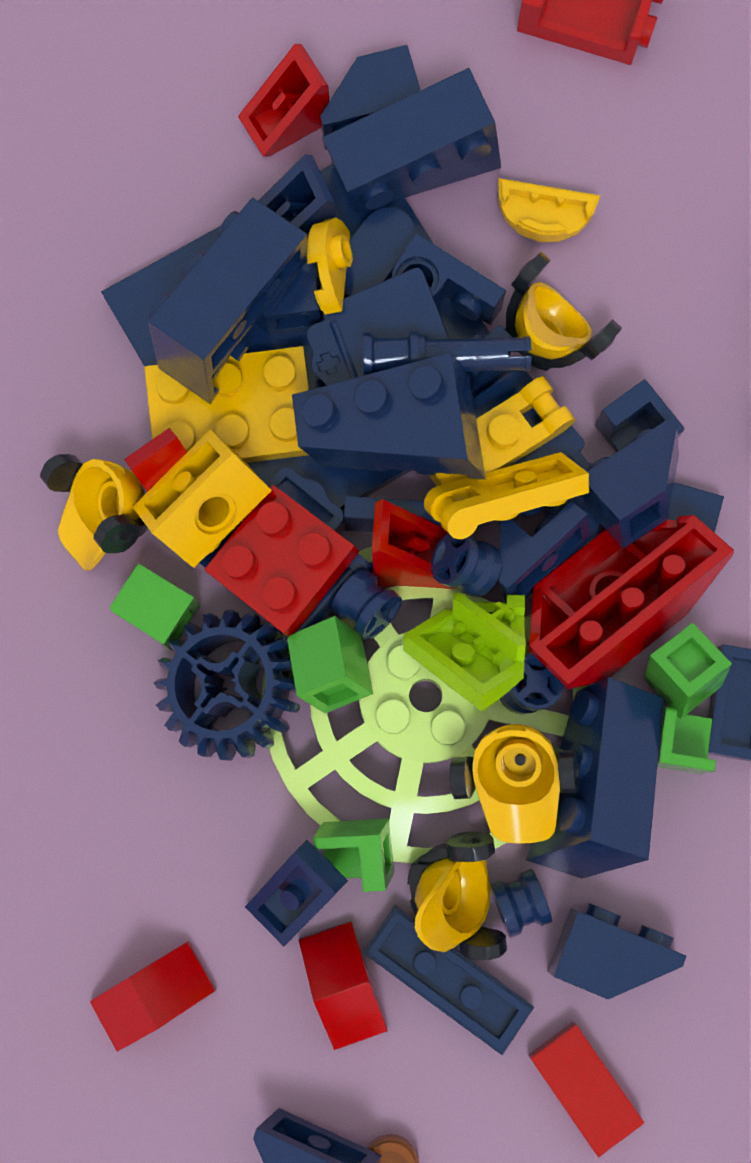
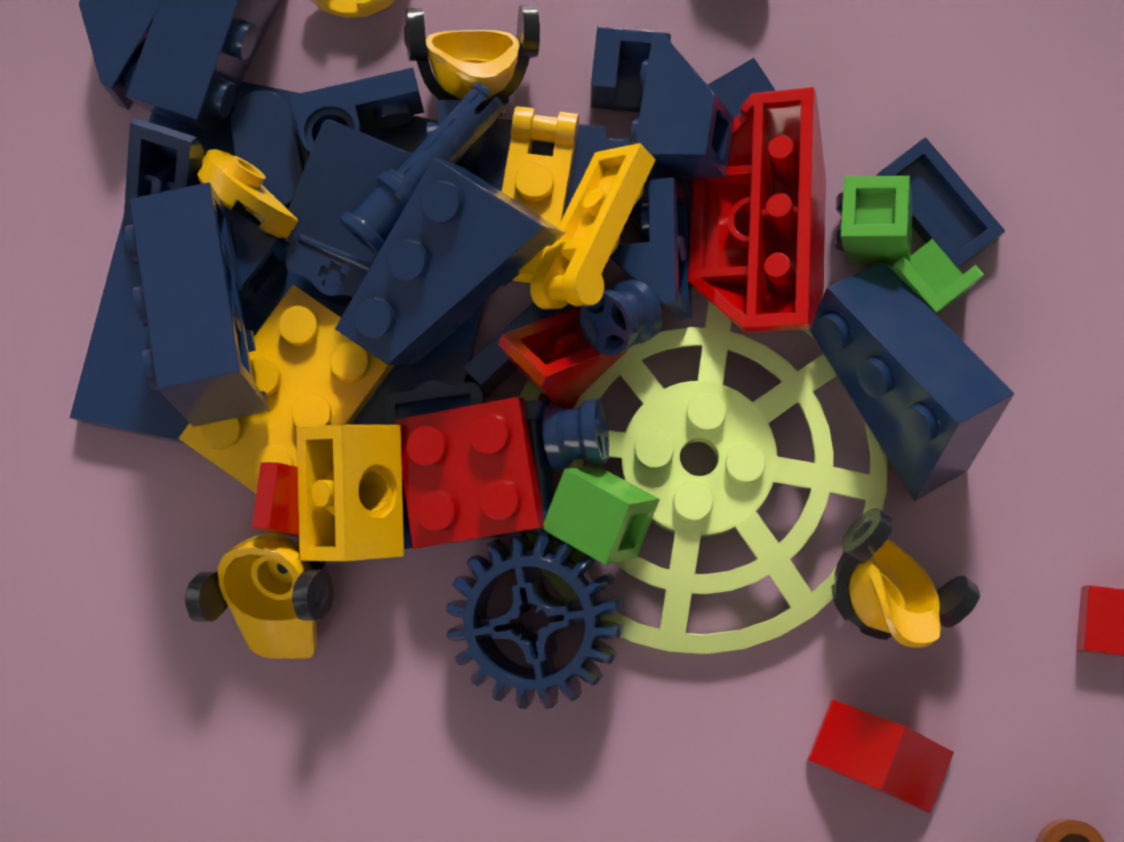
camera: 45 degrees left, 0 degrees up
(154, 605) = (402, 622): bright green panel -> none
(286, 104) = (58, 102): red slope -> none
(296, 893) = (769, 722): dark blue slope -> none
(359, 850) = (779, 637): bright green panel -> none
(449, 982) = (957, 662): dark blue tile -> none
(473, 647) = (700, 375): lime slope -> none
(517, 782) = (850, 442): yellow cap -> none
(521, 903) = (947, 538): dark blue wheel -> none
(537, 680) = (786, 353): dark blue wheel -> none
(608, 958) = (1058, 508): dark blue slope -> none

